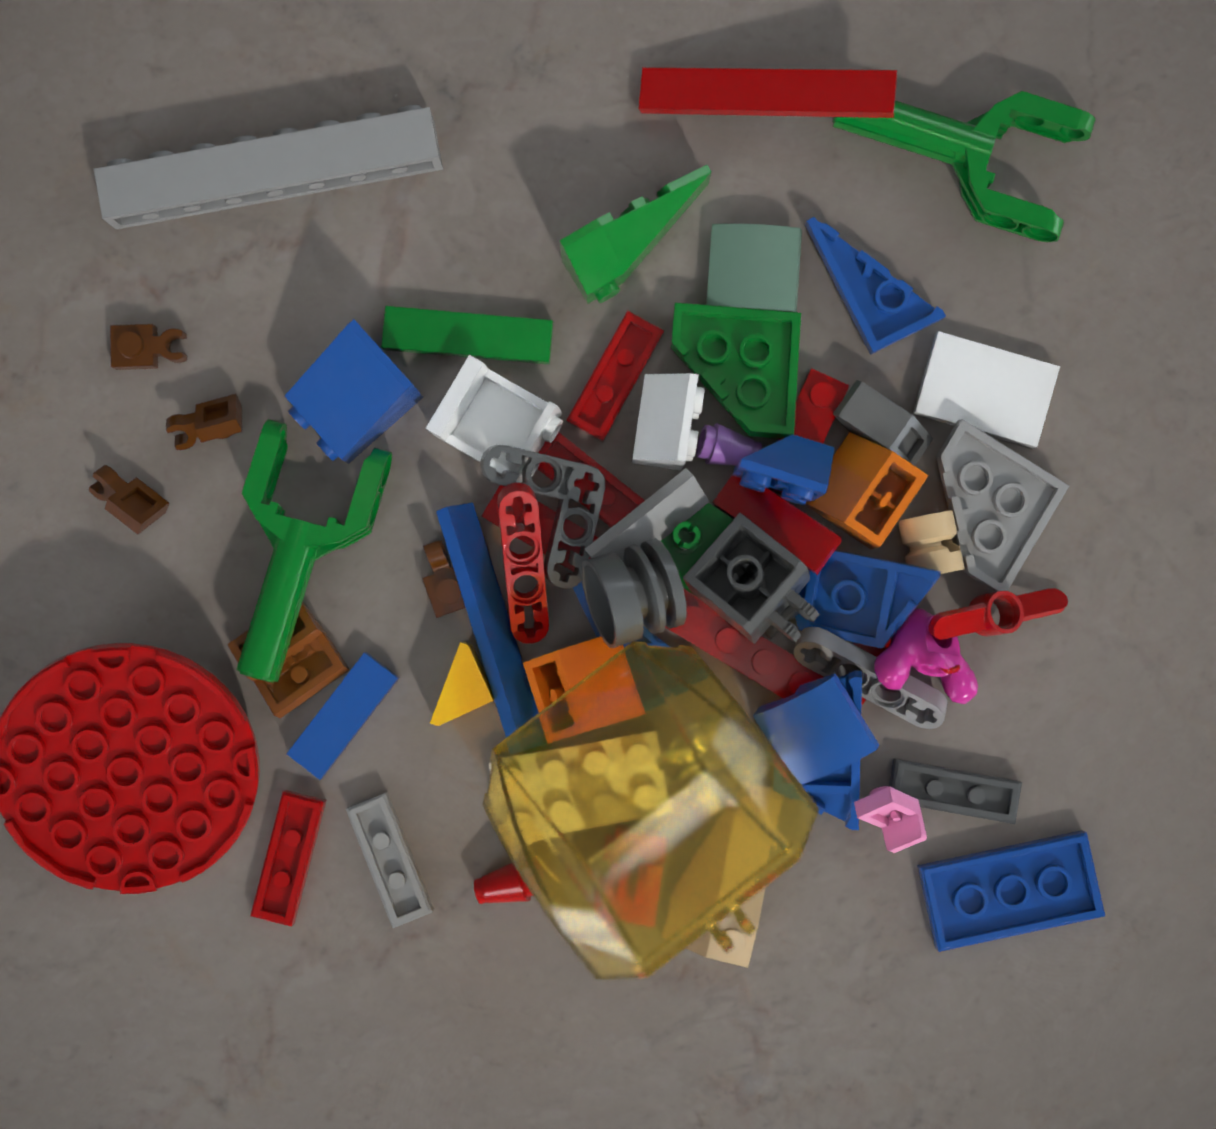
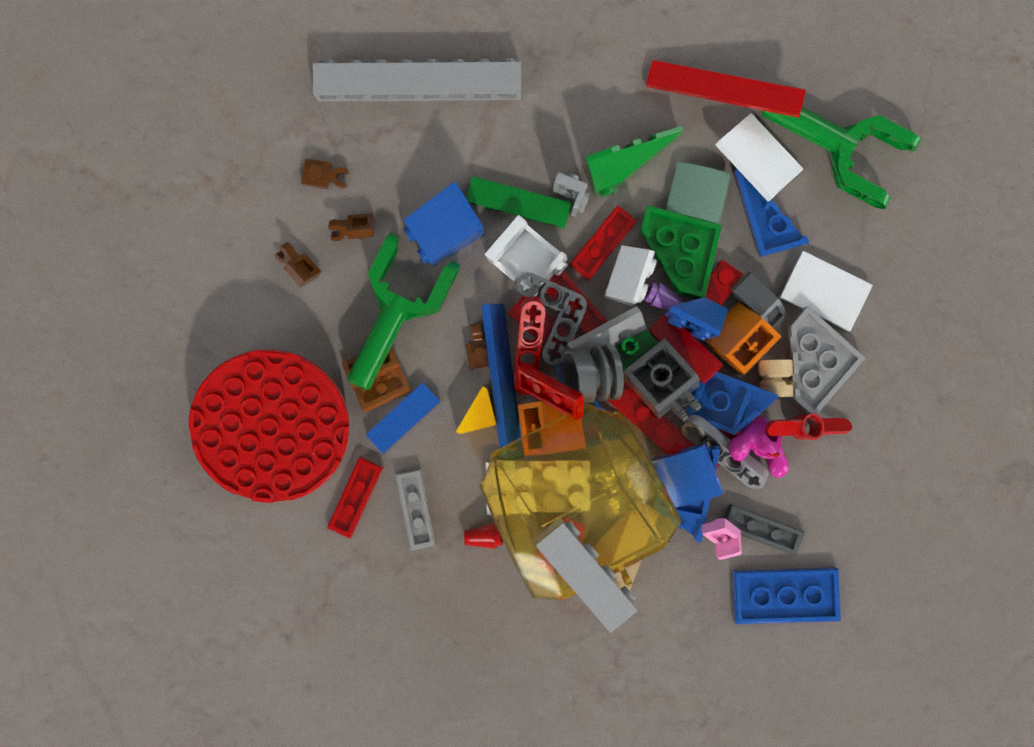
camera: 15 degrees right, 0 degrees up
(545, 296) = (570, 187): none -> light grey bracket
(570, 632) = (551, 391): none -> red tile
(674, 931) = (585, 574): none -> light grey brick
(841, 193) = (759, 157): none -> white tile

